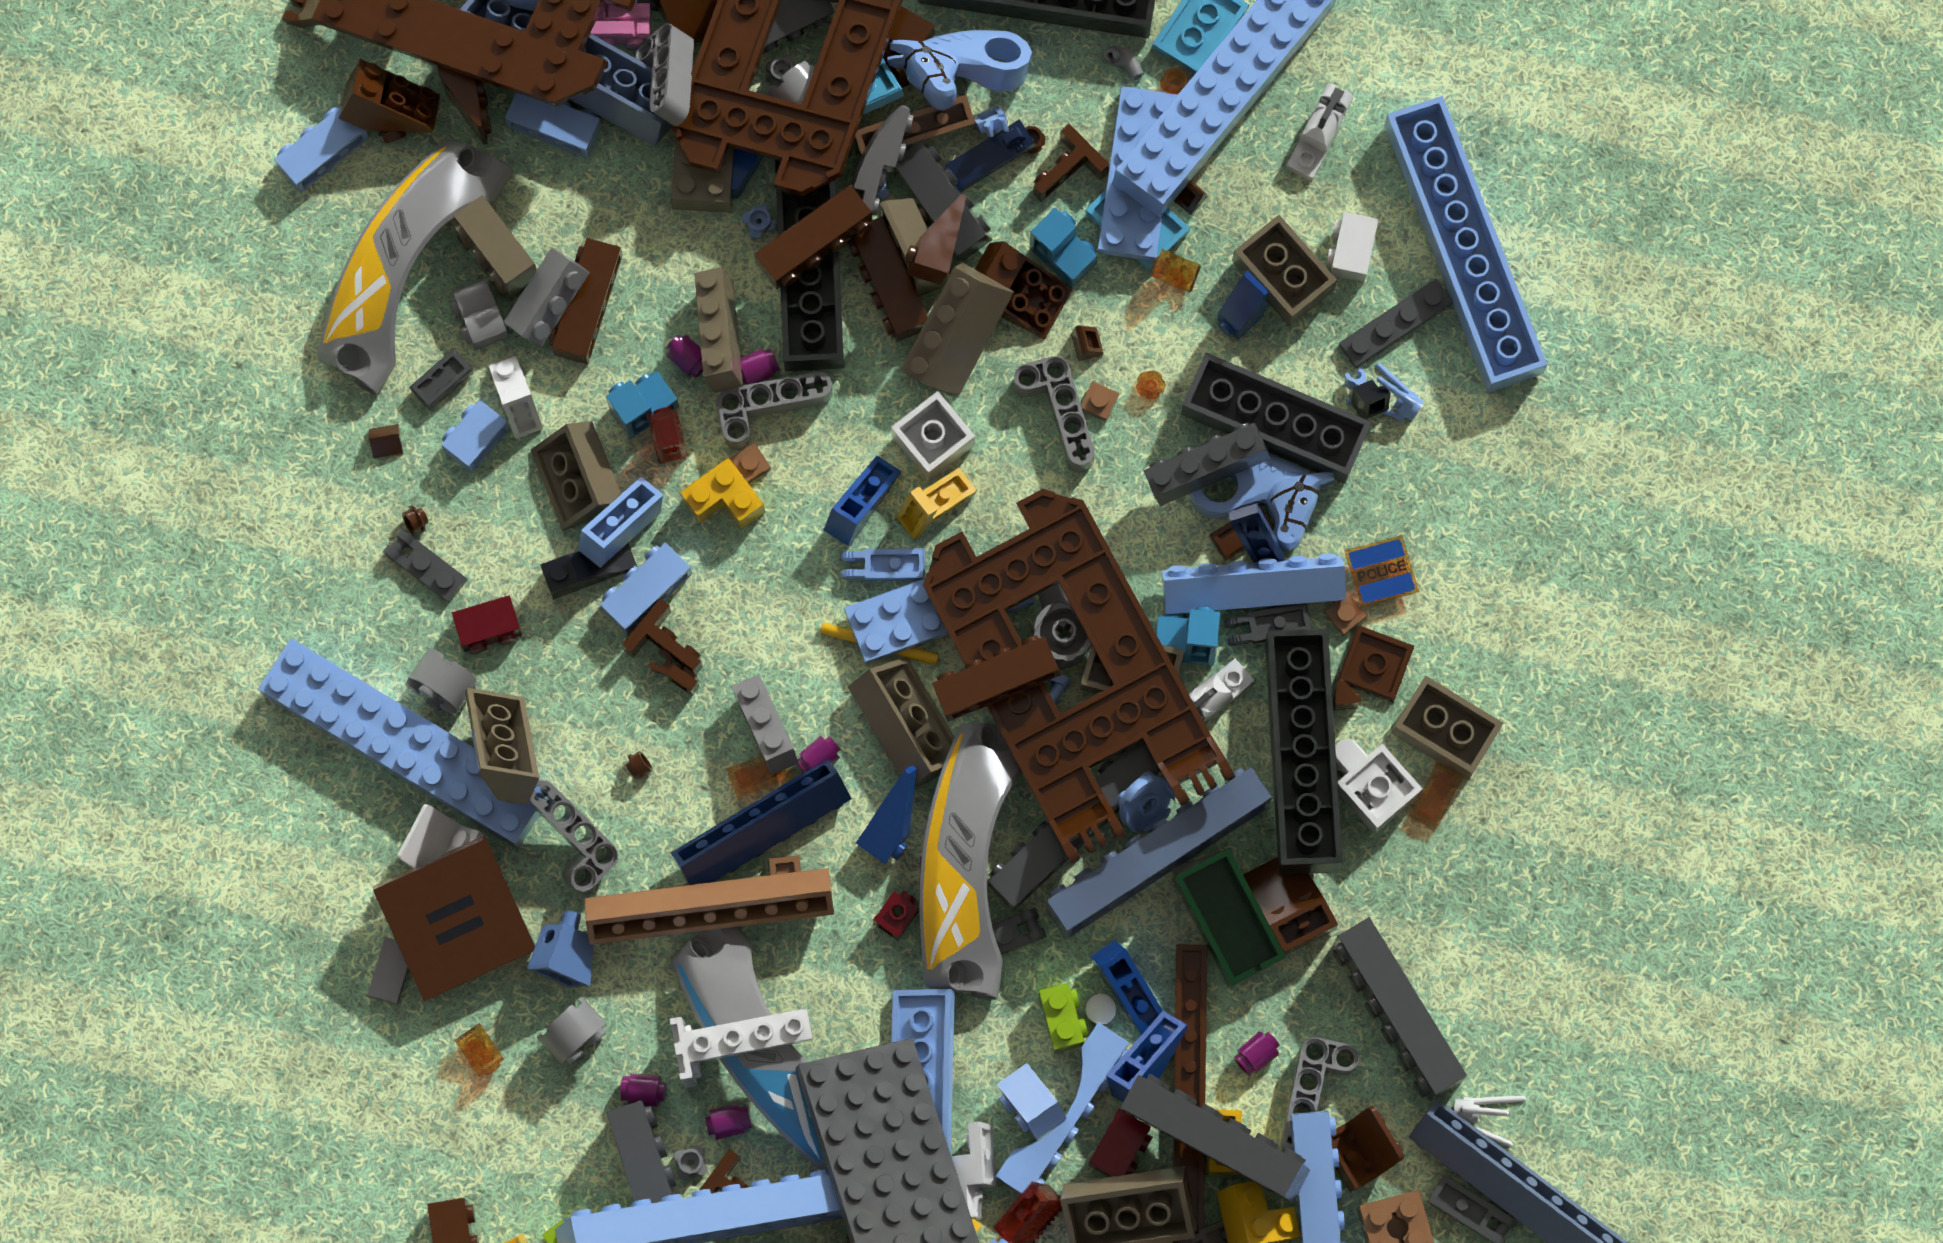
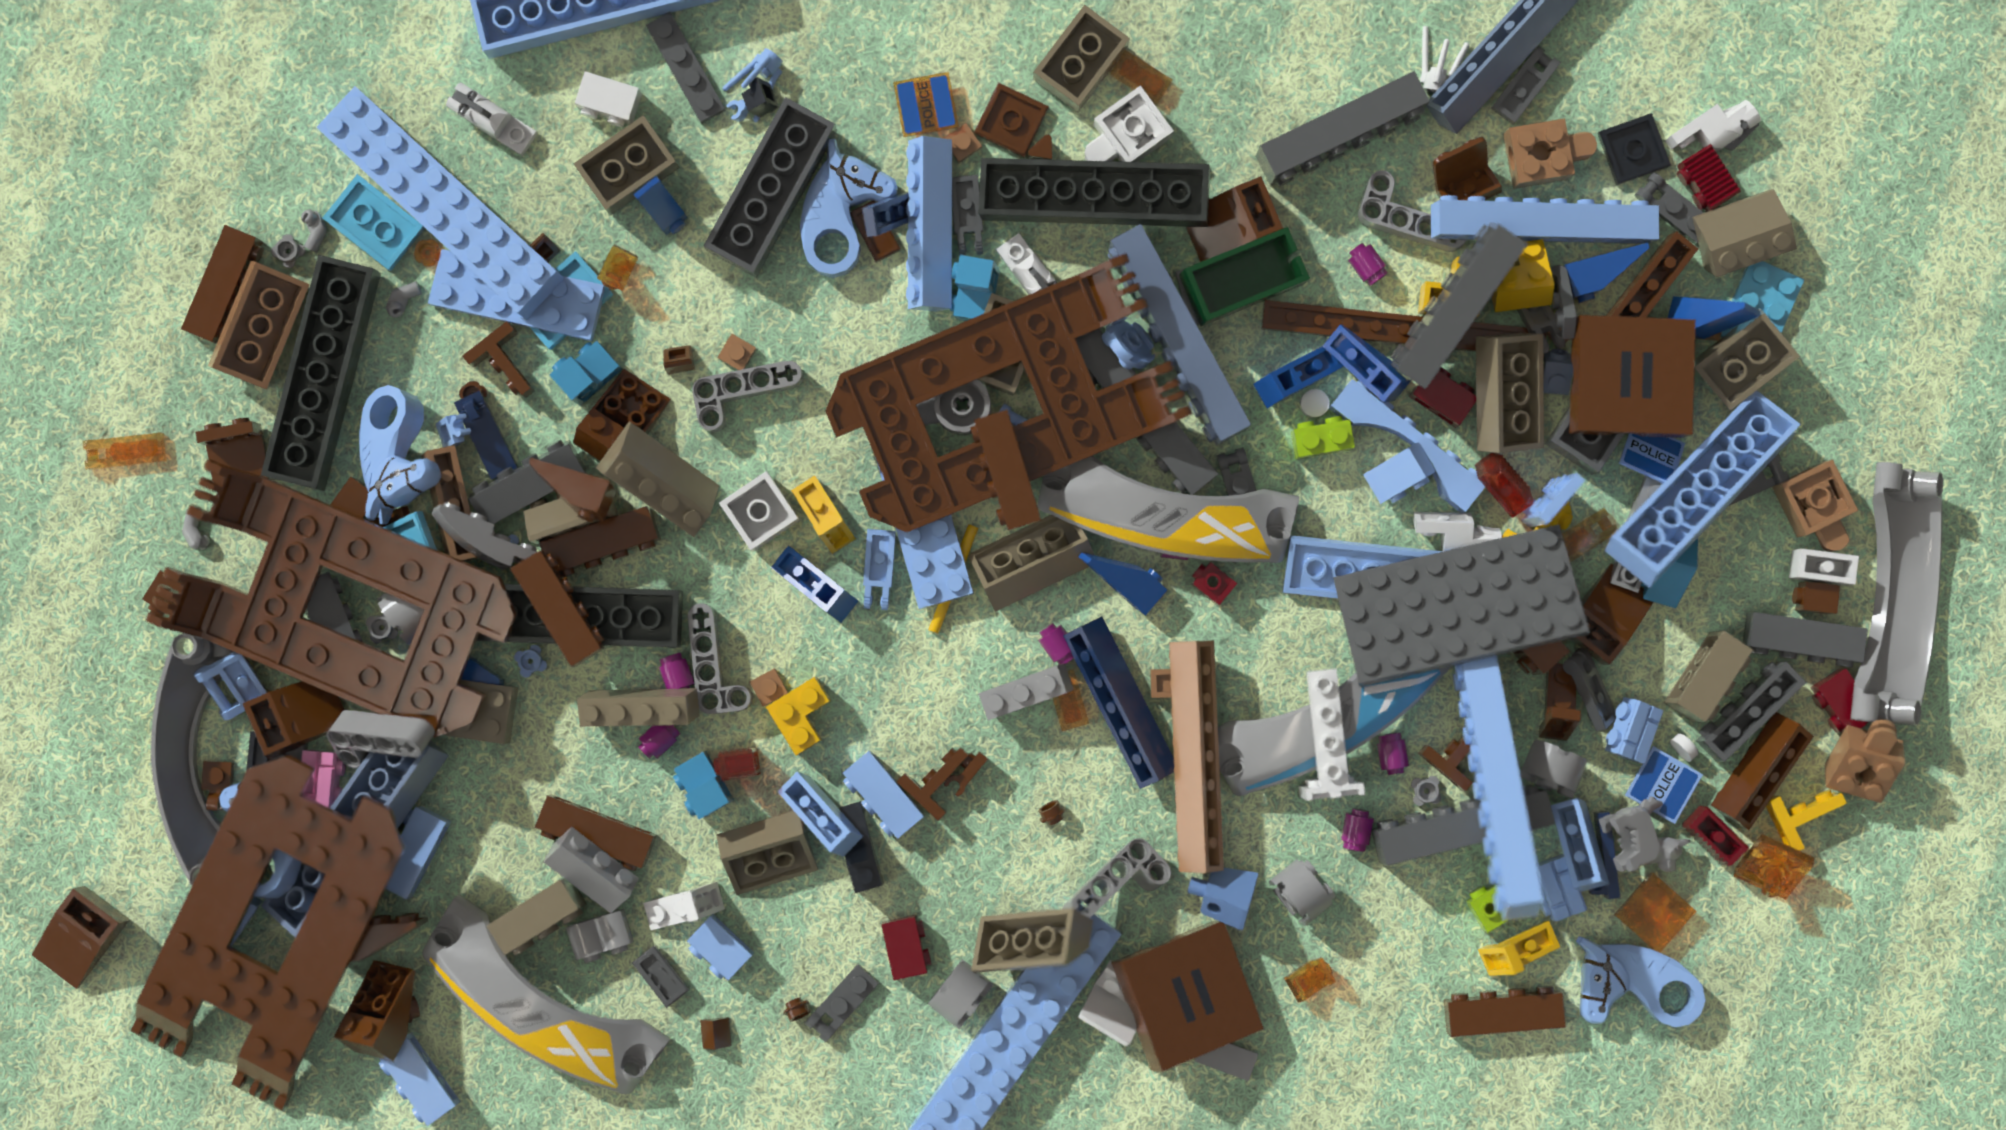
camera: 80 degrees left, 10 degrees up
(1150, 377) = (718, 299): clear orange plate -> none
(1206, 464) = (814, 254): dark grey brick -> none

